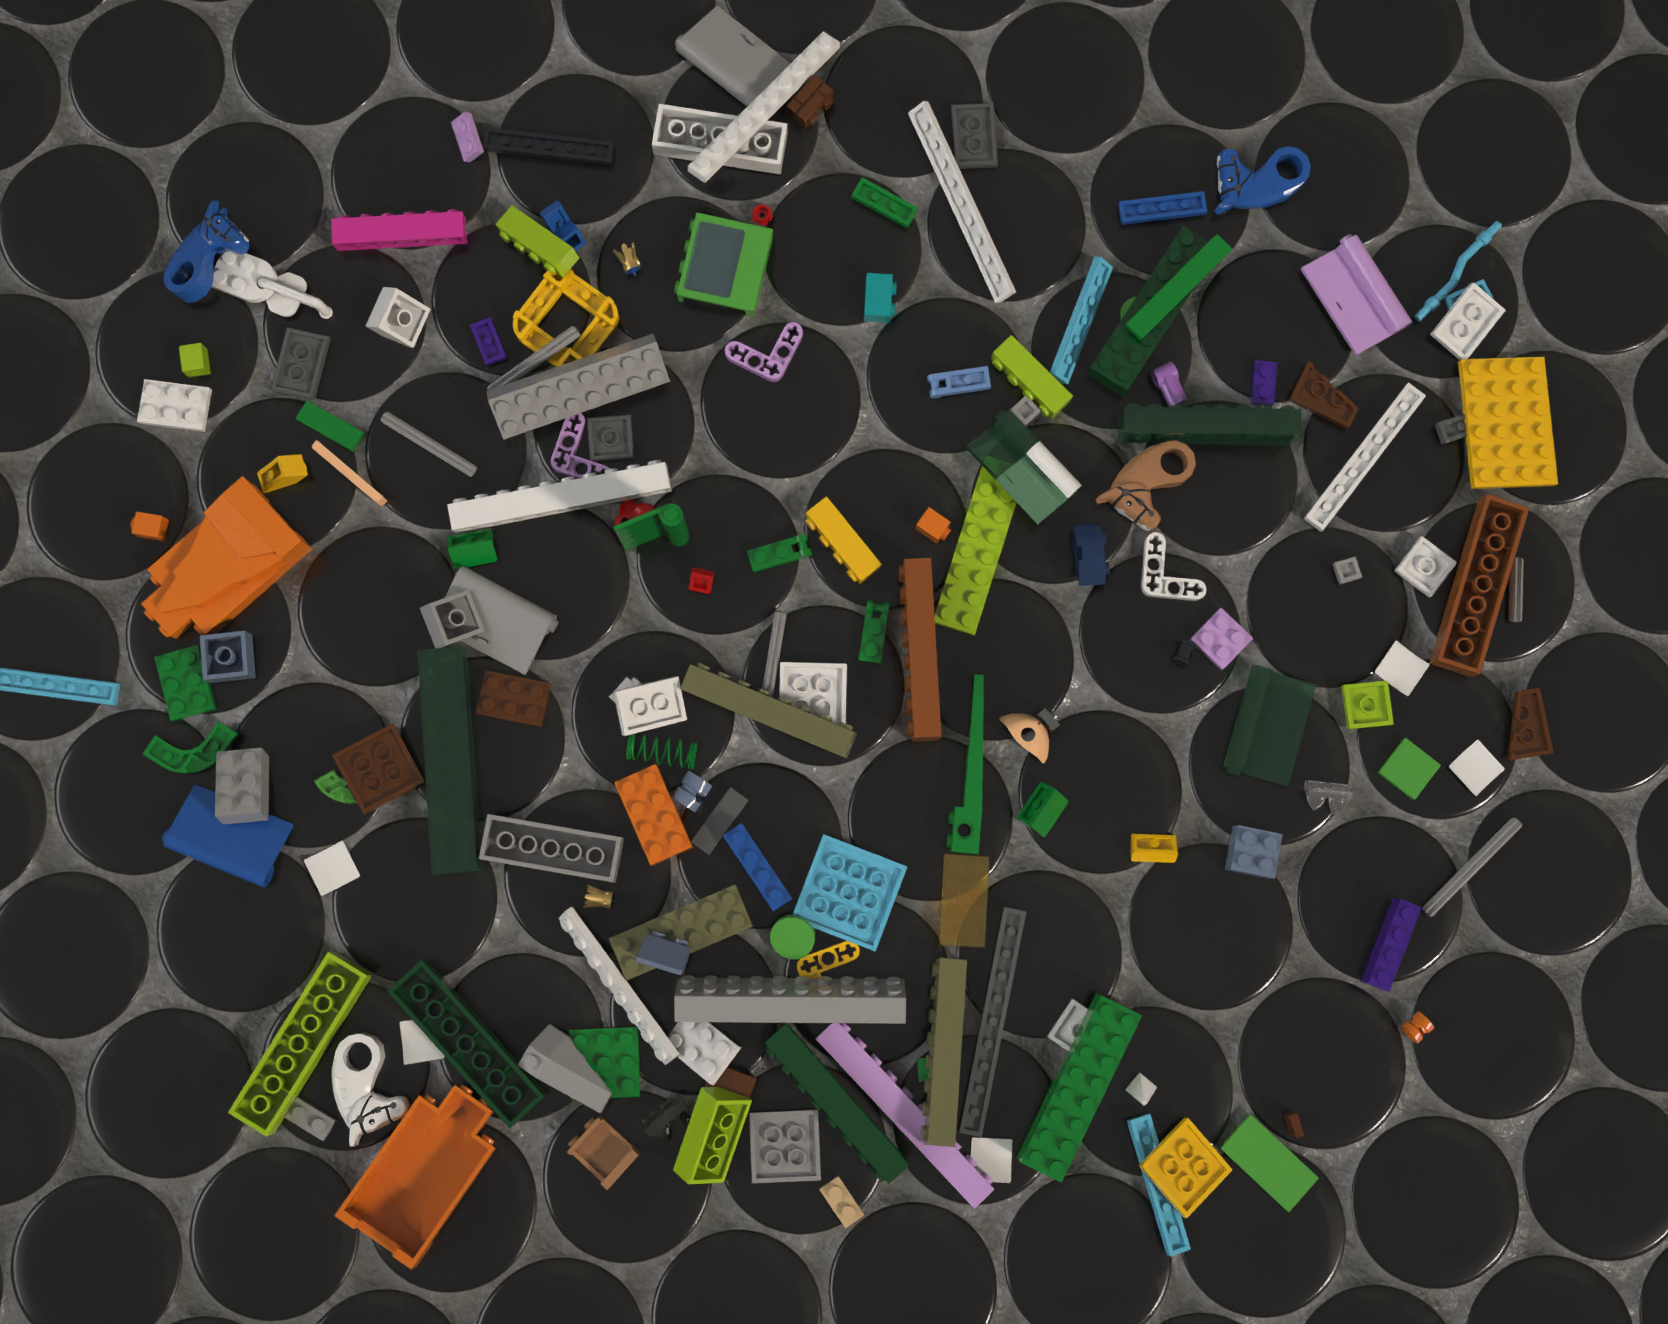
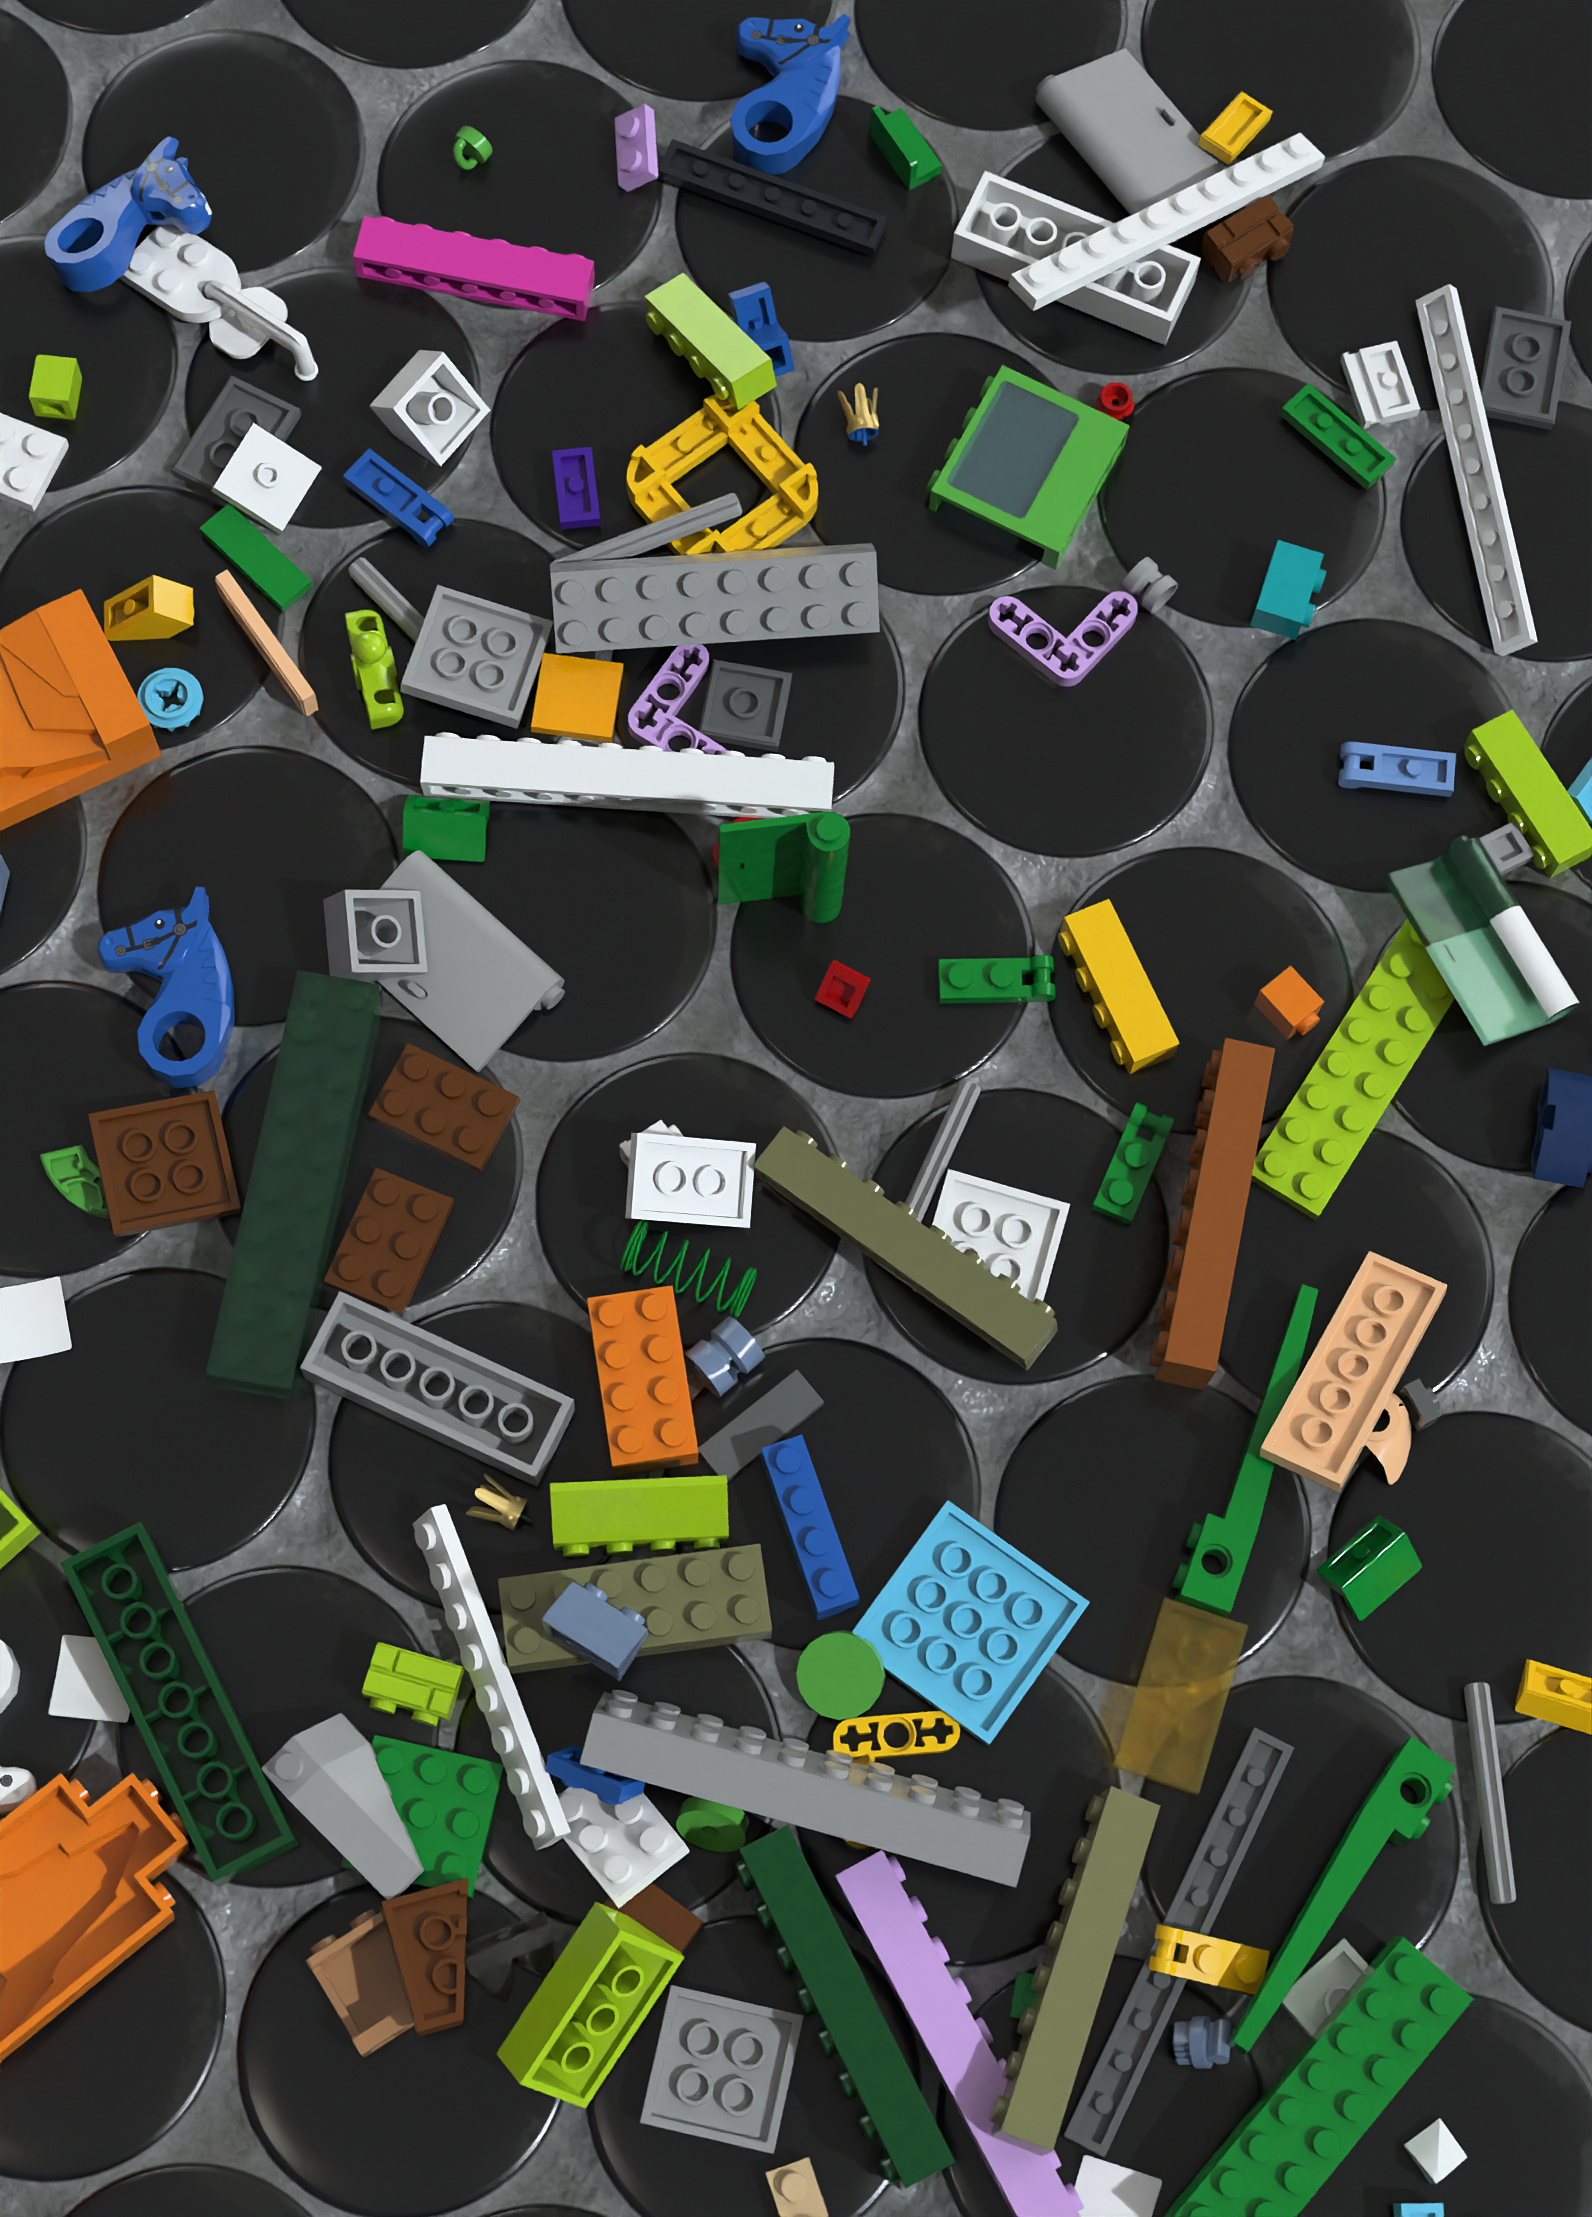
camera: 15 degrees right, 10 degrees down
(303, 508) = (165, 683): none -> medium azure gear
(322, 381) = (266, 479): none -> white plate
(366, 669) = (195, 986): none -> blue animal
(377, 158) = (473, 145): none -> bright green tile
(395, 372) = (397, 497): none -> blue plate
(410, 471) = (374, 668): none -> lime piece
(462, 452) = (476, 656): none -> light grey plate
(505, 777) = (389, 1242): none -> reddish brown plate
(521, 458) = (577, 697): none -> light orange tile
(548, 82) = (801, 95): none -> blue animal
(581, 999) = (413, 1684): none -> lime brick
(612, 97) = (903, 147): none -> green panel
(626, 1131) = (429, 1952): none -> reddish brown wing
(671, 885) = (639, 1514): none -> lime slope
(693, 1029) = (606, 1785): none -> blue plate
(748, 1030) = (712, 1825): none -> bright green piece
(787, 37) = (1235, 128): none -> yellow tile
(805, 314) = (1149, 585): none -> light grey wheel
(900, 167) = (1380, 384): none -> white plate
(1009, 1028) = (1209, 1960): none -> yellow plate
(1011, 713) = (1353, 1371): none -> light nougat plate
(1015, 1068) = (1202, 2042): none -> sand blue piece
(1074, 938) = (1380, 1818): none -> green piece
(1128, 906) = (1490, 1793): none -> light grey axle

